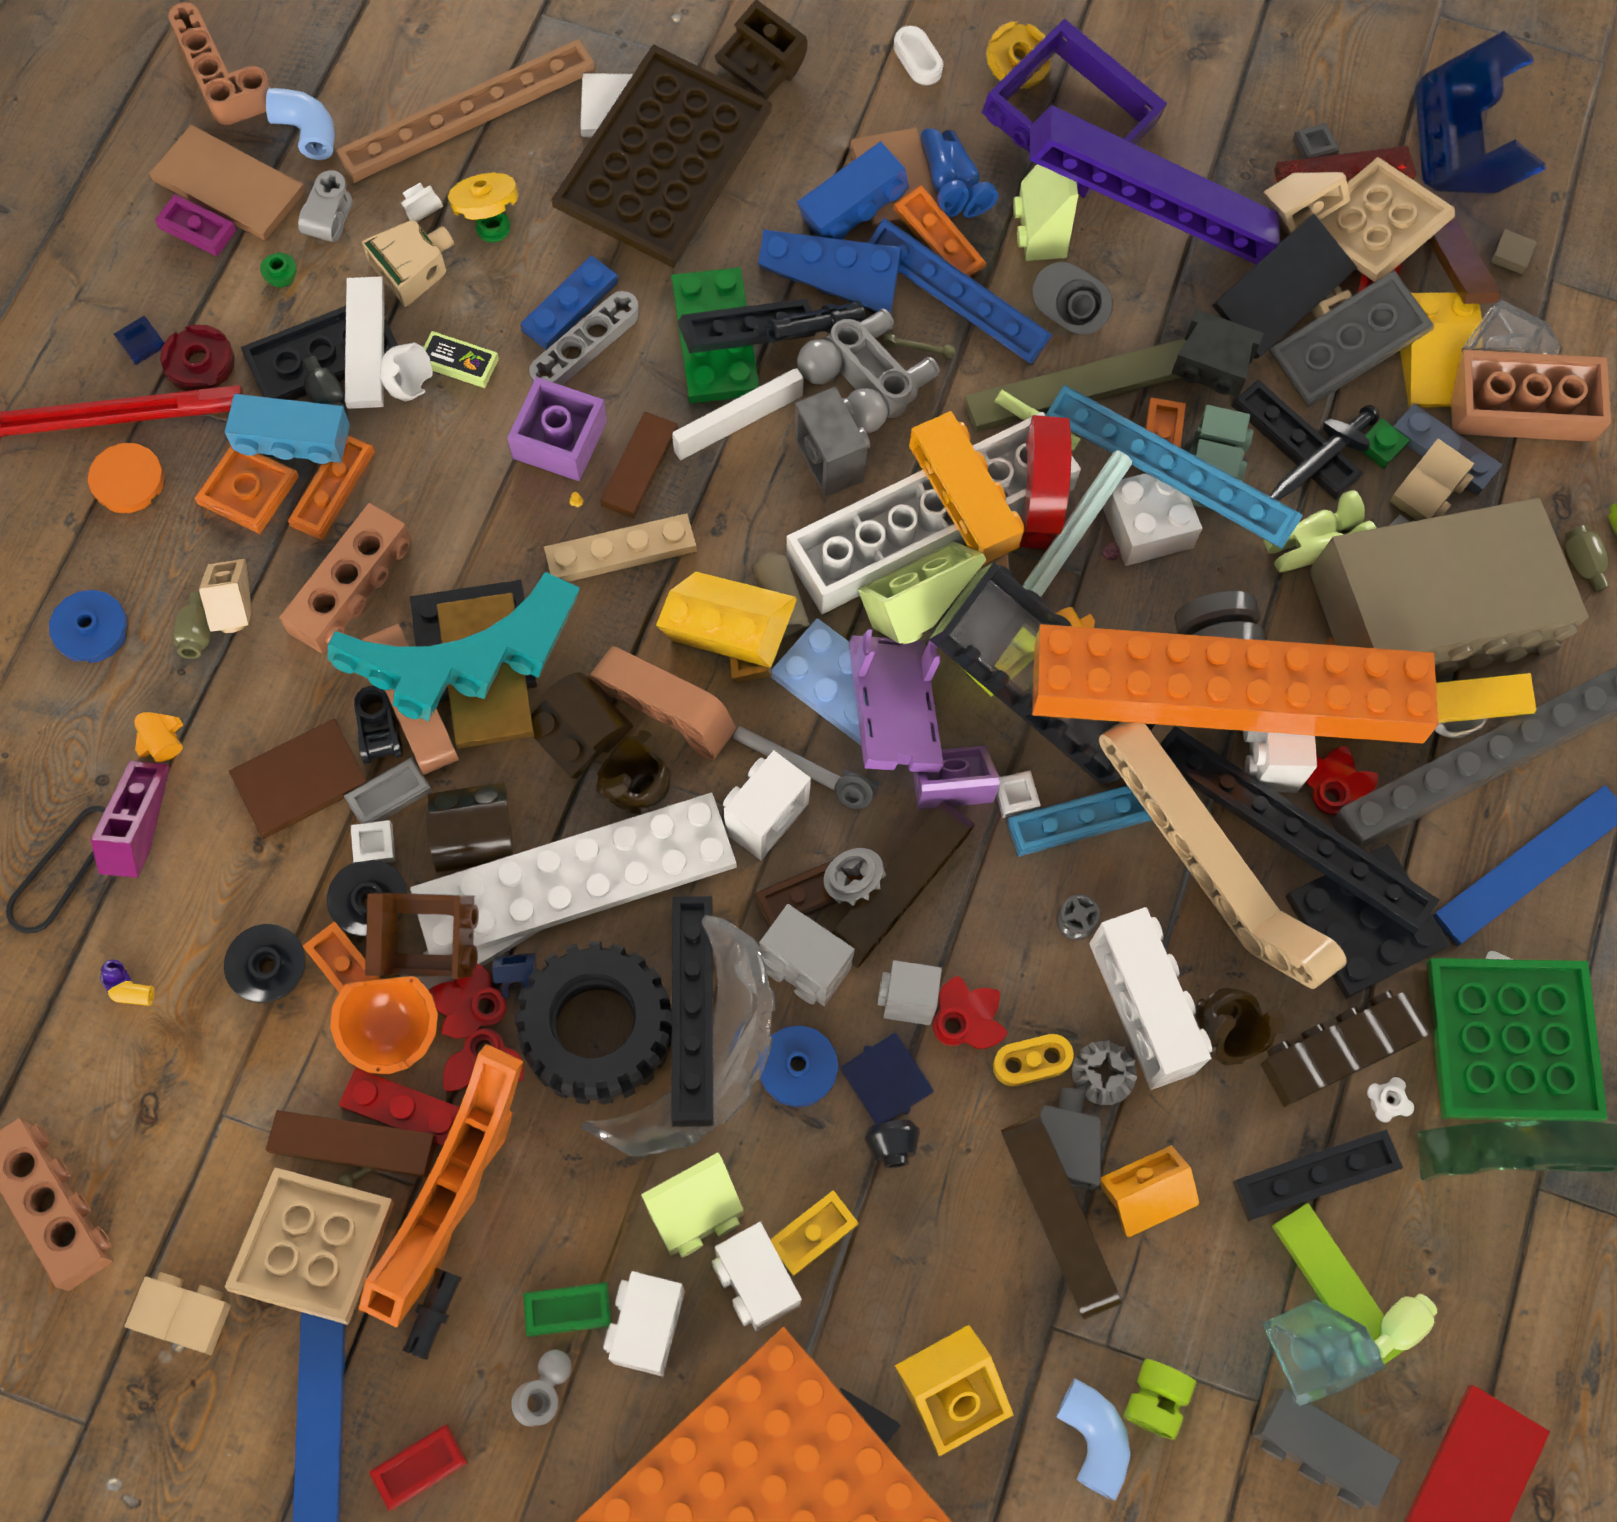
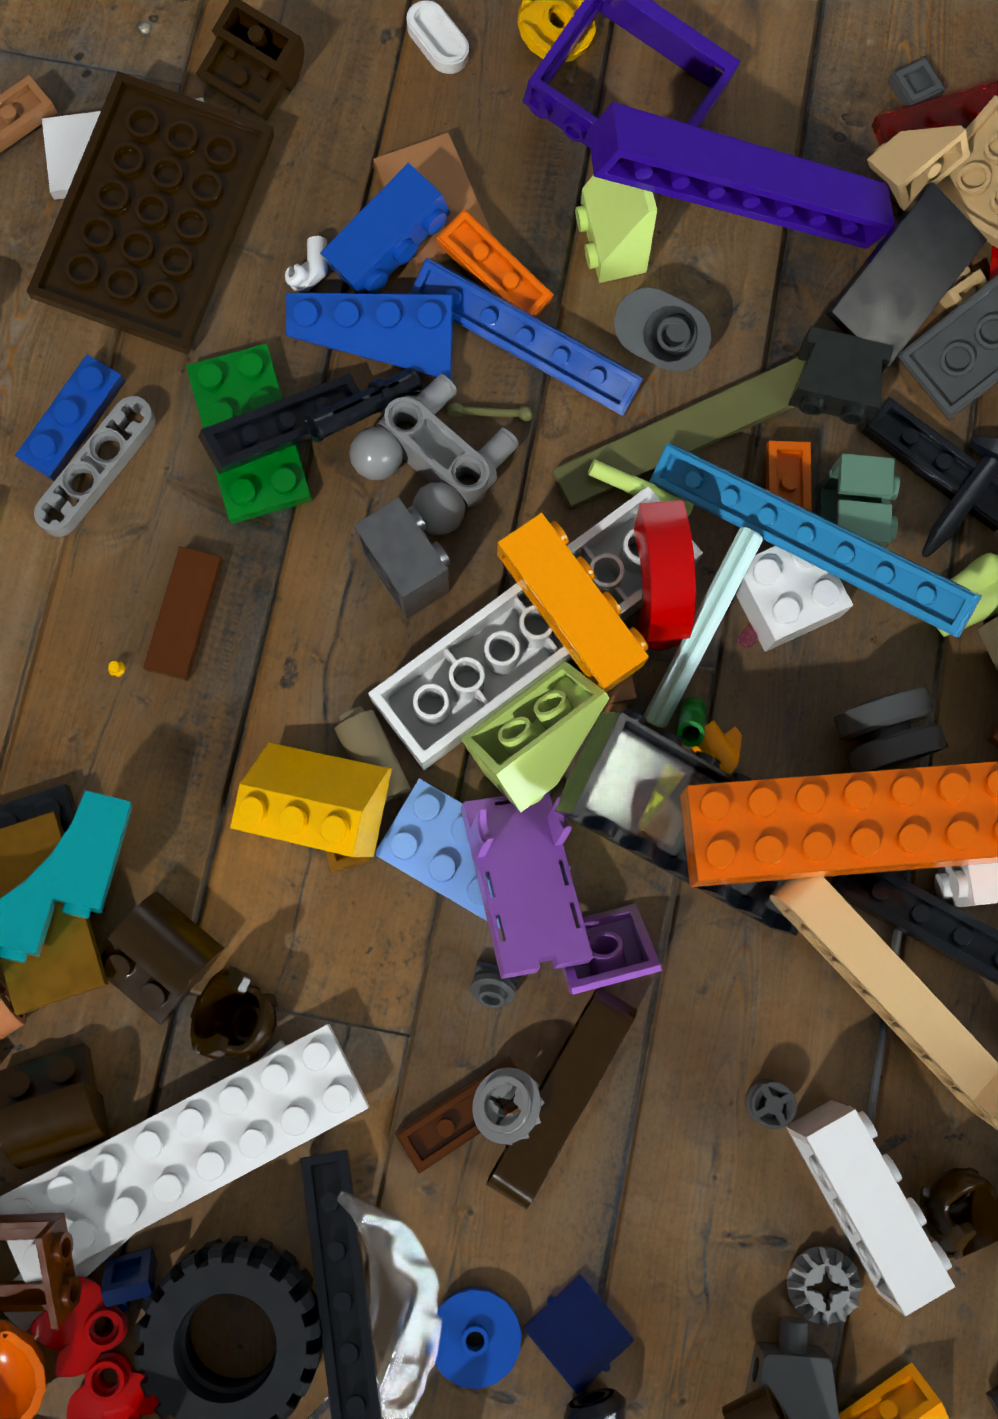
camera: 10 degrees left, 10 degrees up
(557, 429) = (77, 589): medium lavender brick -> none
(621, 548) = (176, 724): tan plate -> none
(667, 699) = (253, 916): nougat beam -> none
(737, 414) = (289, 534): white tile -> none
(766, 747) = (408, 956): light grey piece -> none
(766, 804) = (391, 1035): white brick -> none
(786, 218) = (307, 275): none -> white arm
(805, 956) = (465, 1219): light grey brick -> none
(910, 992) = (593, 1243): light grey brick -> none
(955, 175) = (502, 188): blue piece -> none
(973, 1014) = (667, 1238): red plate -> none
(1017, 794) = (680, 959): white tile -> none
(1031, 1059) = (743, 1294): yellow plate -> none
(1062, 596) = (692, 721): none -> green piece
(1075, 820) = (748, 981): dark azure tile -> none

